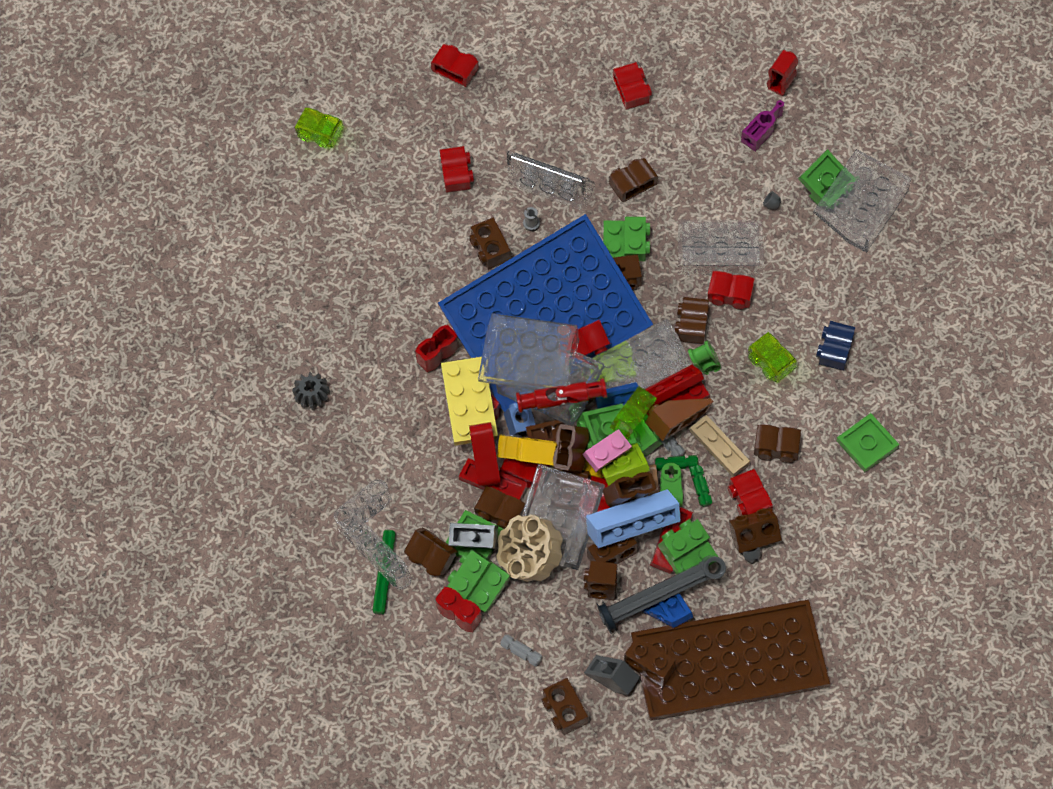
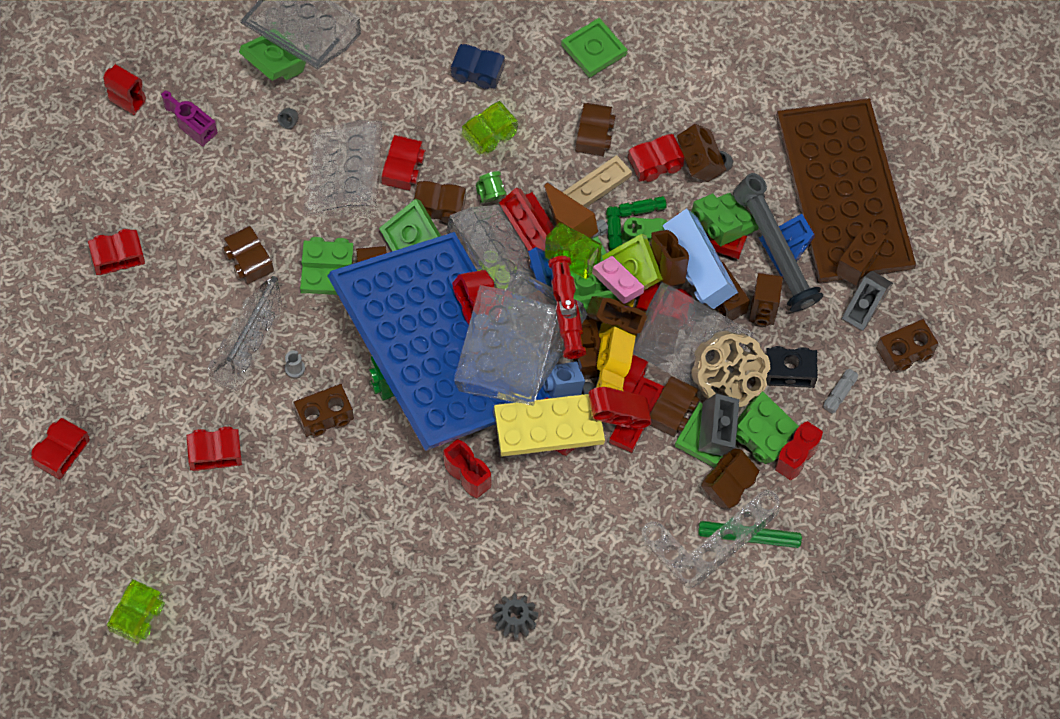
camera: 95 degrees left, 0 degrees up
(541, 592) = (802, 358): none -> black brick
(659, 296) = (409, 227): none -> bright green plate

